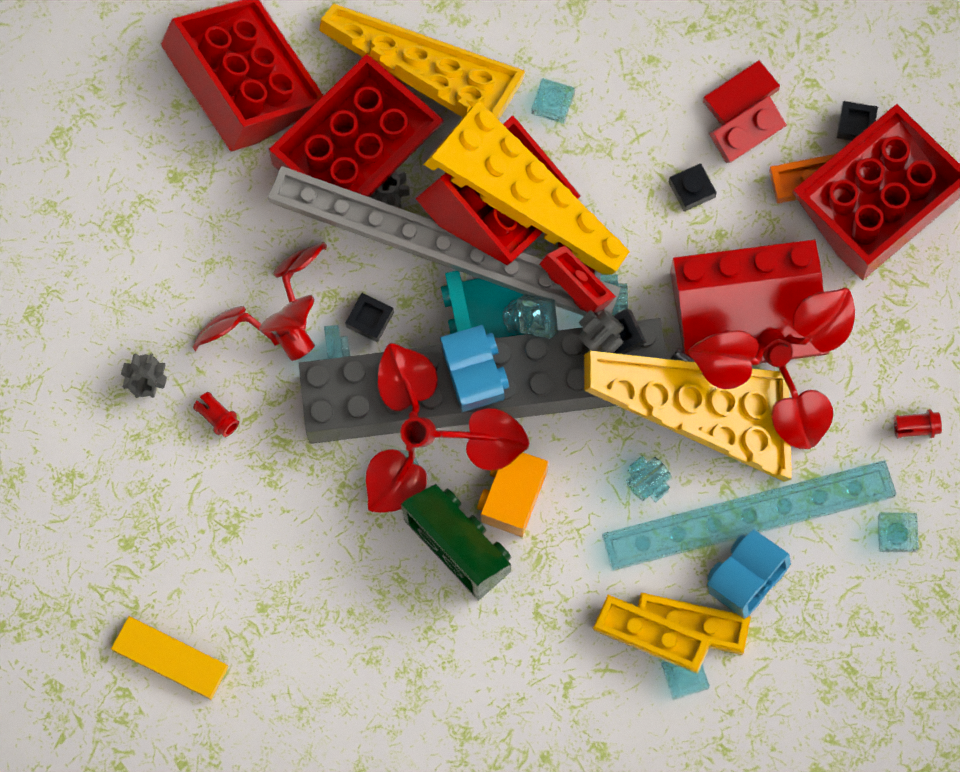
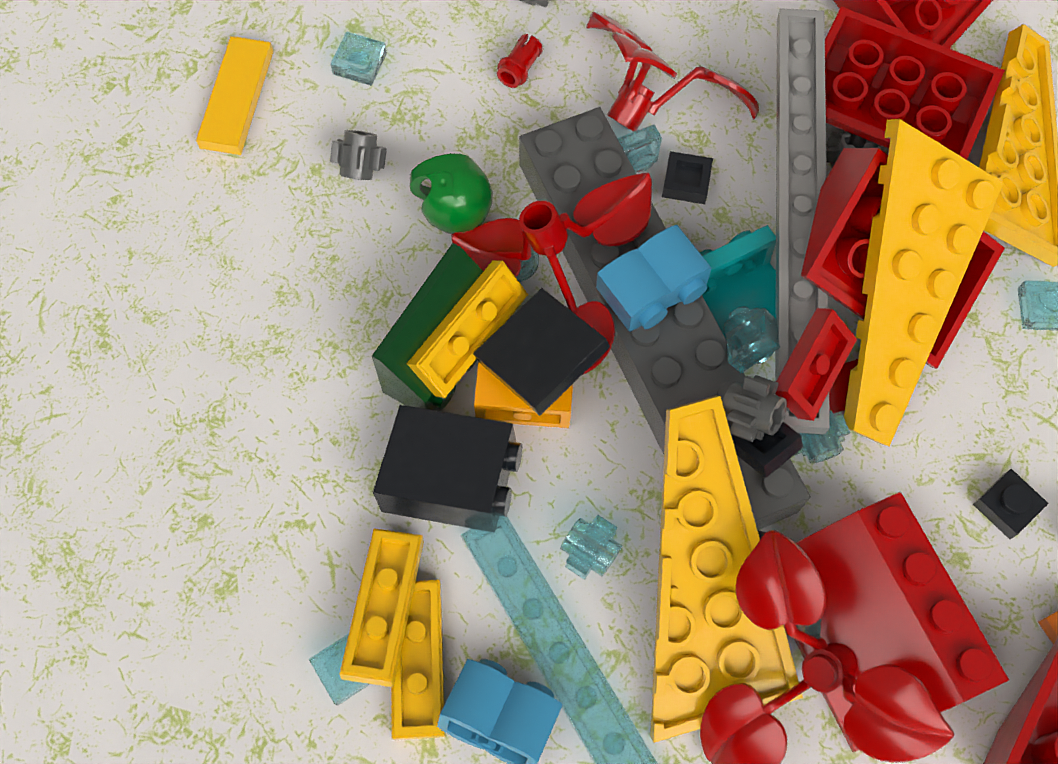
camera: 70 degrees right, 5 degrees down
(170, 545) = (358, 58): none -> clear light blue plate
(271, 566) = (358, 155): none -> dark grey gear
(336, 491) = (457, 195): none -> green helmet
(464, 514) = (467, 326): none -> yellow tile
(503, 466) = (541, 351): none -> black tile
(563, 561) = (448, 468): none -> black brick

